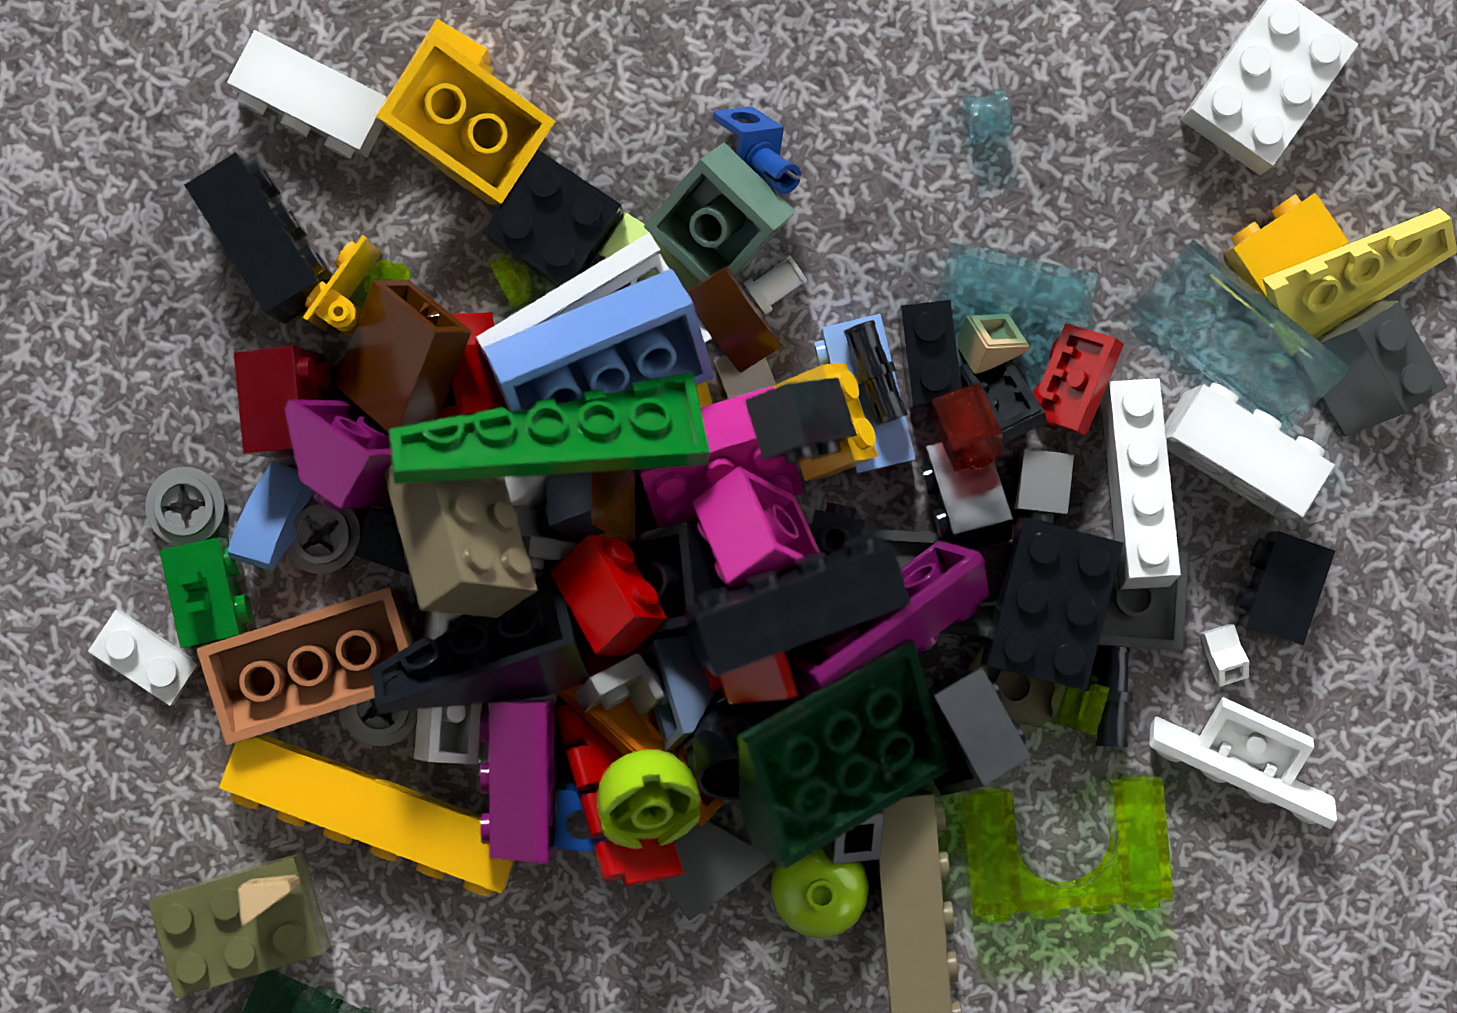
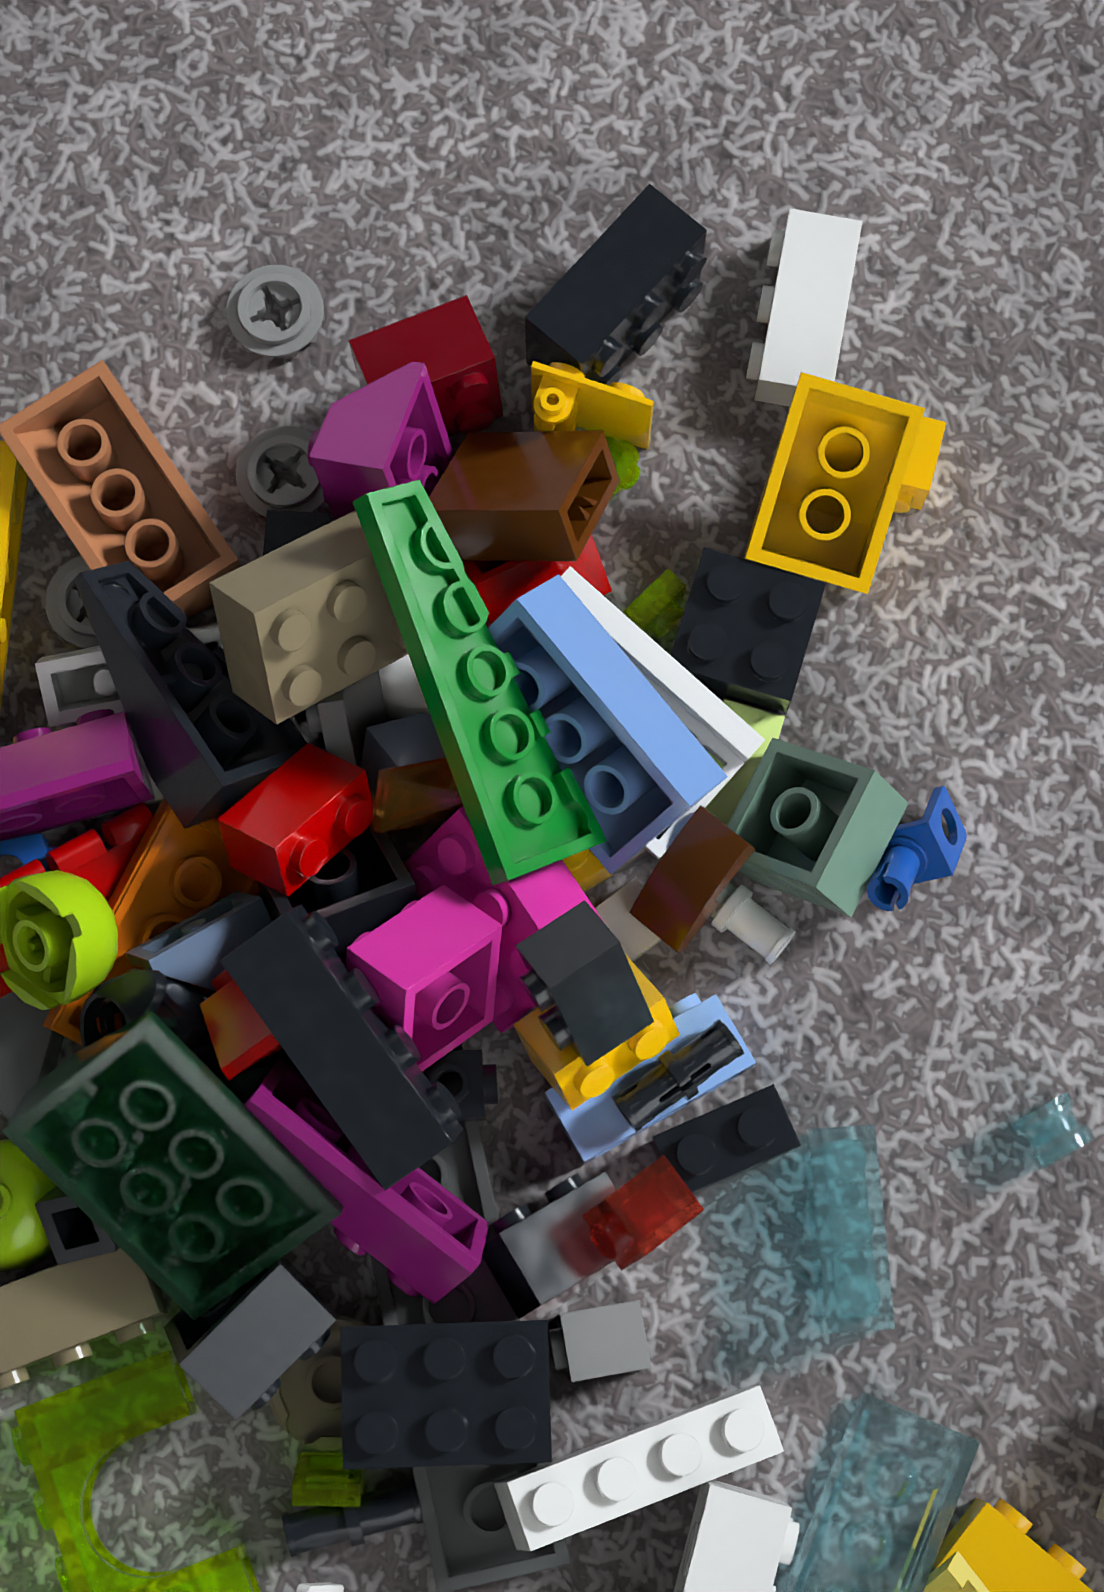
camera: 75 degrees right, 10 degrees down
(144, 657) = (82, 315): white plate -> none
(205, 592) = (178, 360): green brick -> none
(268, 517) = (276, 402): medium blue slope -> none
(624, 680) = (190, 859): light grey bracket -> none
(990, 341) = (766, 1219): tan slope -> none
(1009, 398) = (701, 1253): black plate -> none
(1076, 377) = (749, 1341): red bracket -> none

